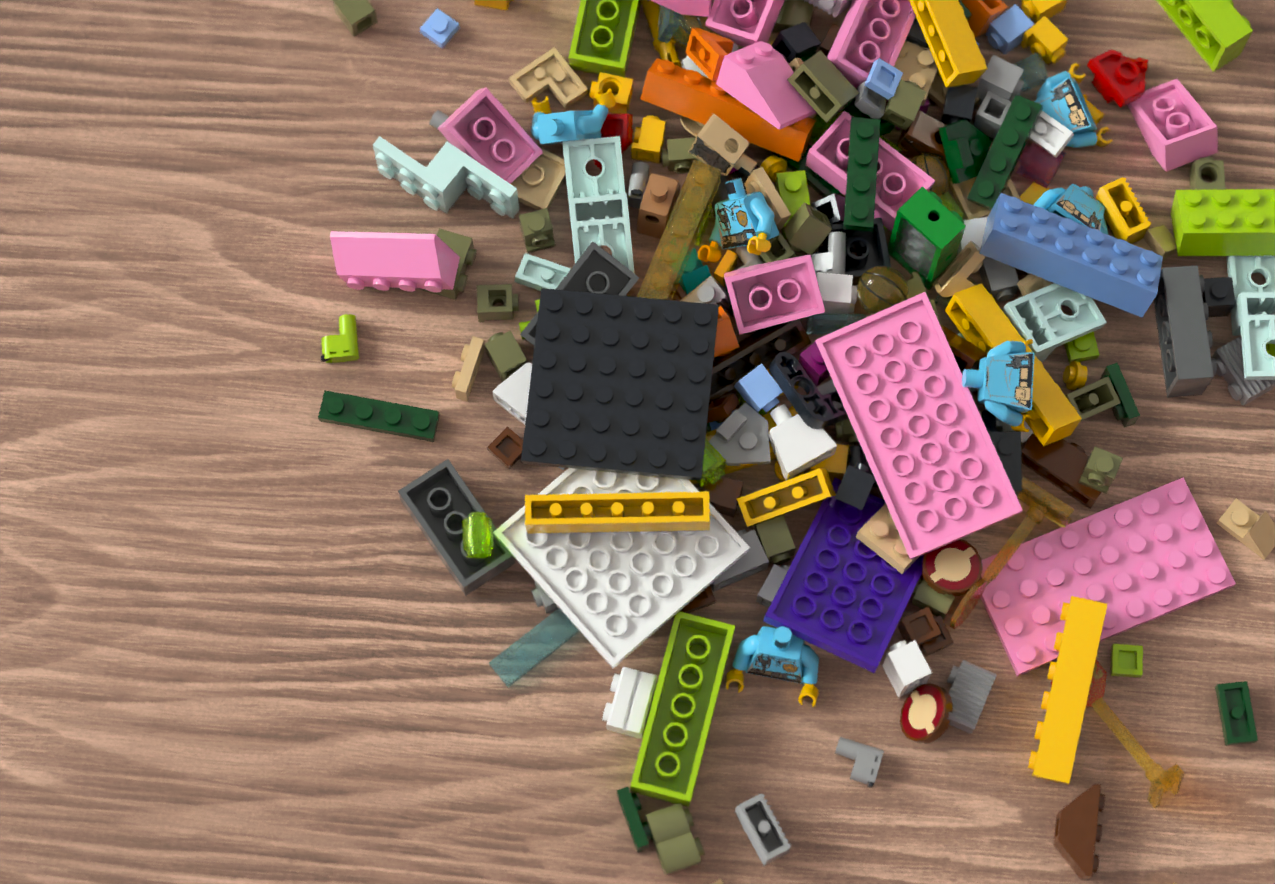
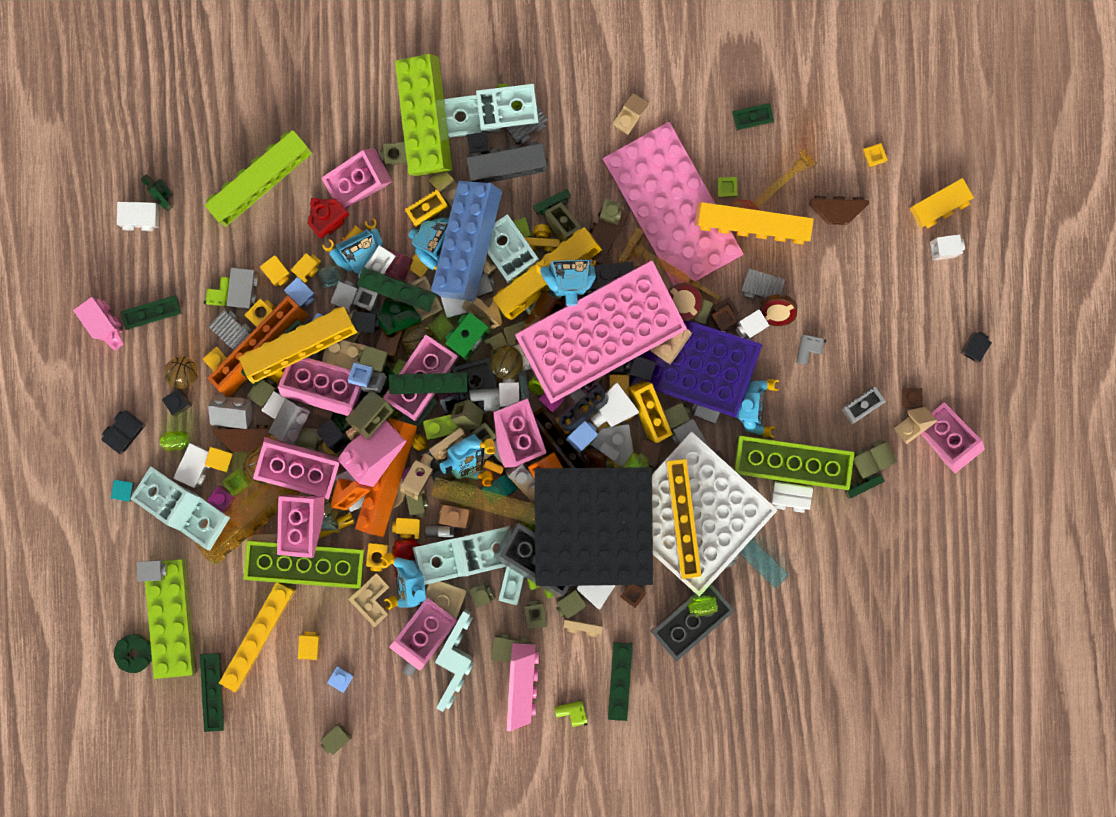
camera: 95 degrees left, 15 degrees up
(1058, 360) = (548, 244): none -> yellow plate

